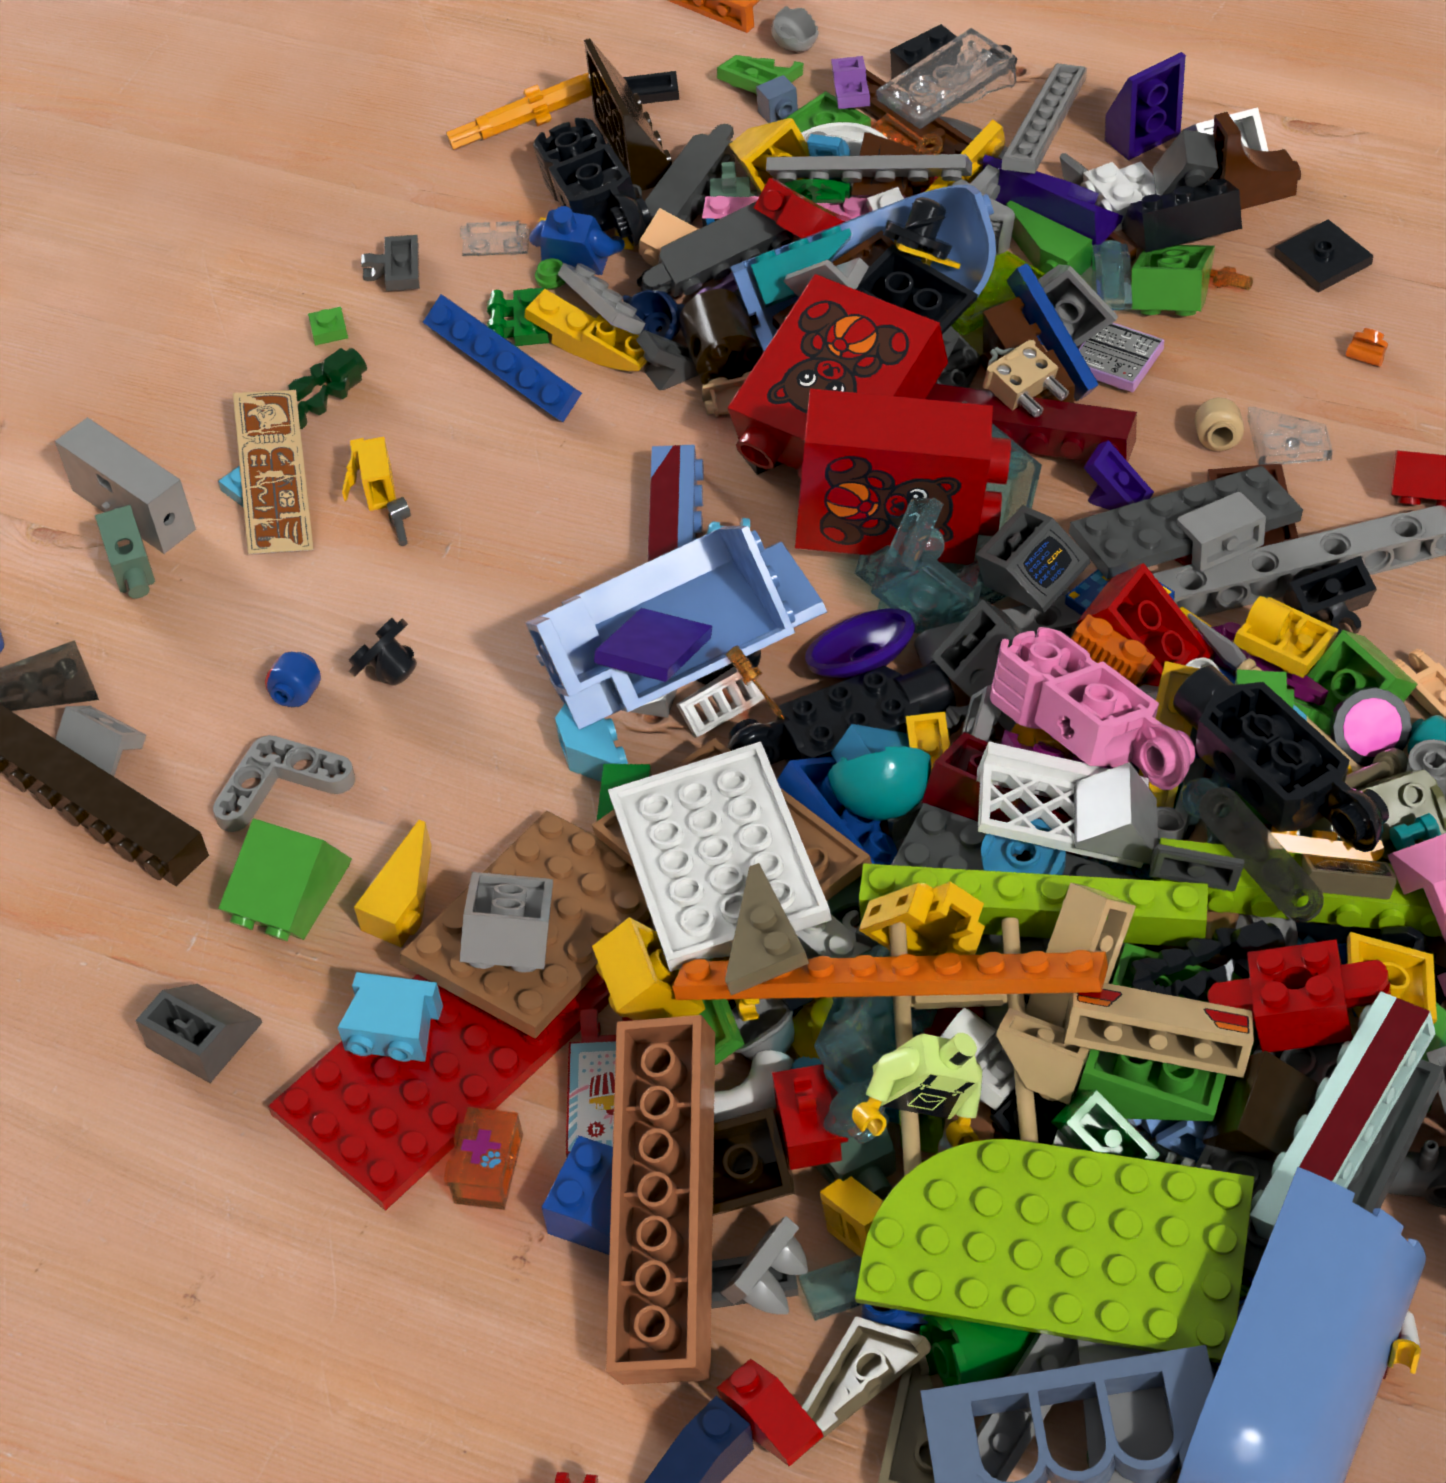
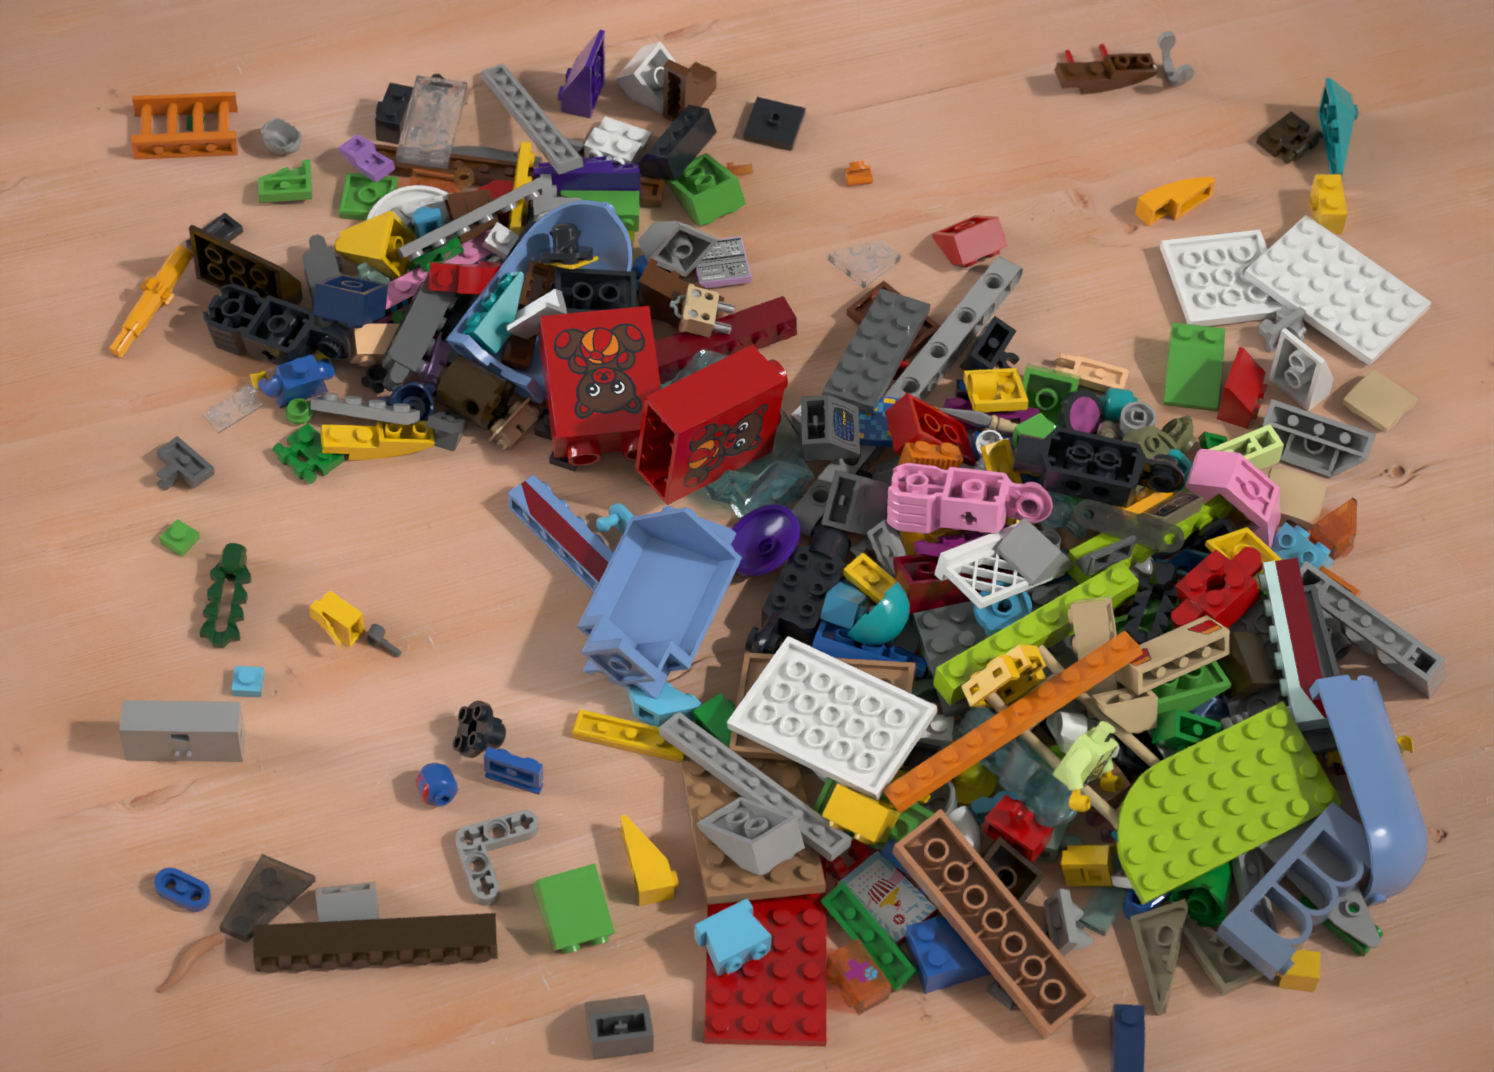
camera: 50 degrees left, 5 degrees up
(130, 561) = (235, 775): sand green torso -> none
(272, 472) = (264, 660): sticker -> none
(377, 715) = (513, 770): none -> blue plate
(502, 358) = (331, 489): blue plate -> none
(533, 758) = (624, 735): none -> yellow tile
(542, 1123) = (862, 925): none -> green plate
(574, 880) = (752, 783): none -> light grey plate
(653, 644) = (672, 617): dark purple tile -> none
(674, 183) = (350, 300): none -> dark blue brick
(740, 703) = (718, 628): white slope -> none
(750, 674) = (740, 600): clear orange piece -> none
(763, 937) = (928, 744): dark tan wing -> none
(771, 1411) = (1139, 988): red slope -> none
(776, 99) = (323, 197): sand blue plate -> none
(915, 536) = (760, 454): clear light blue tile -> none
(1053, 331) = (689, 271): blue tile -> none
(1112, 274) = (671, 204): clear light blue slope -> none
(1115, 479) = (802, 349): dark purple slope -> none
(1186, 162) = (655, 109): dark grey brick -> none
(1219, 424) = (825, 275): tan head -> none
(1223, 530) = (906, 342): light grey panel -> none

